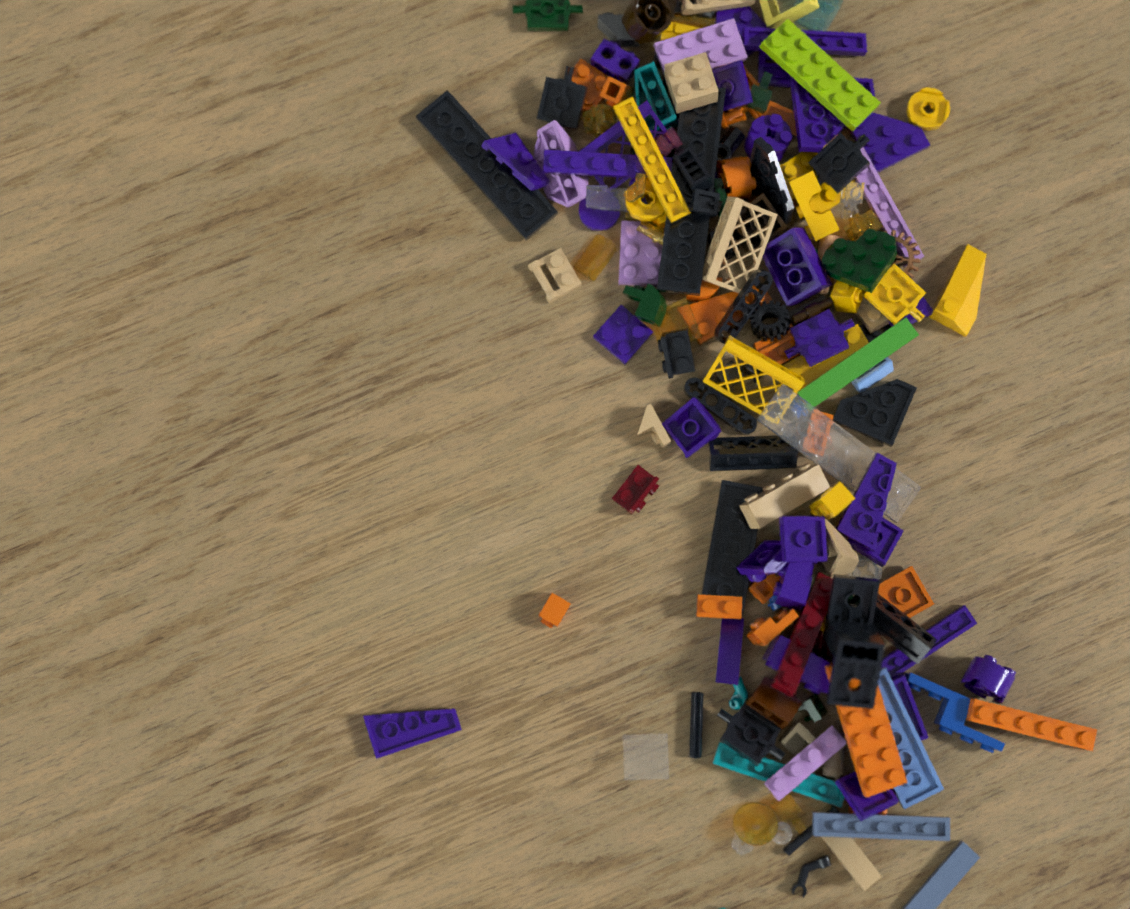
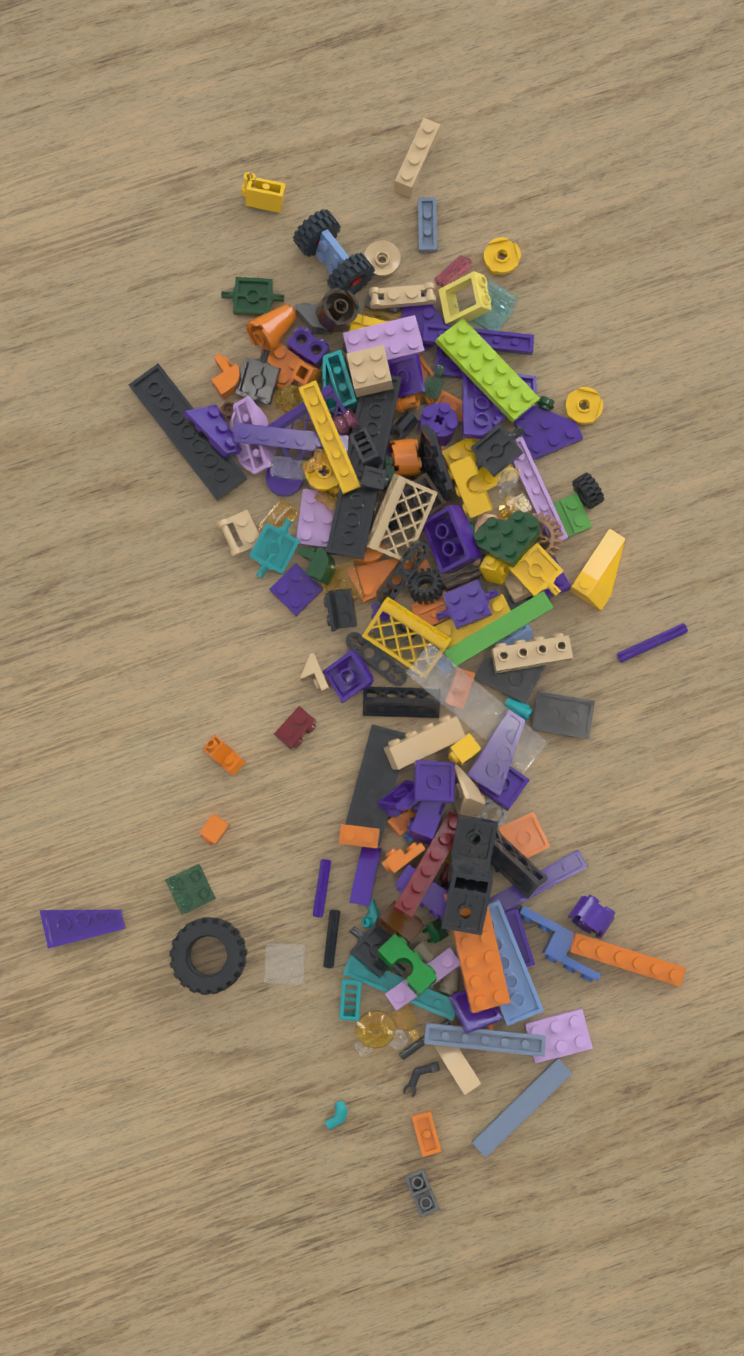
camera: 10 degrees right, 0 degrees up
(527, 105) = (228, 380): none -> orange brick
(530, 132) = (224, 410): none -> reddish brown plate
(532, 680) = (190, 889): none -> clear green hinge
(558, 526) = (224, 755): none -> orange slope
(560, 785) = (182, 962): none -> black tyre
(571, 42) = (271, 327): none -> orange cone
(596, 289) = (274, 548): none -> teal plate
(680, 668) = (321, 890): none -> dark purple axle
(715, 348) = (376, 606): none -> plate
(724, 811) = (347, 1015): none -> teal slope
(805, 758) = (397, 951): none -> green arch
(886, 108) = (546, 403): none -> dark green plate
(886, 450) = (519, 708): none -> teal cone
(896, 389) = (531, 654): none -> tan brick
(926, 231) = (572, 515): none -> bright green plate
(934, 455) = (563, 715): none -> black plate
(942, 202) = (588, 490): none -> black tyre
(969, 813) = (564, 1034): none -> lavender plate
(1026, 368) = (652, 642): none -> dark purple axle

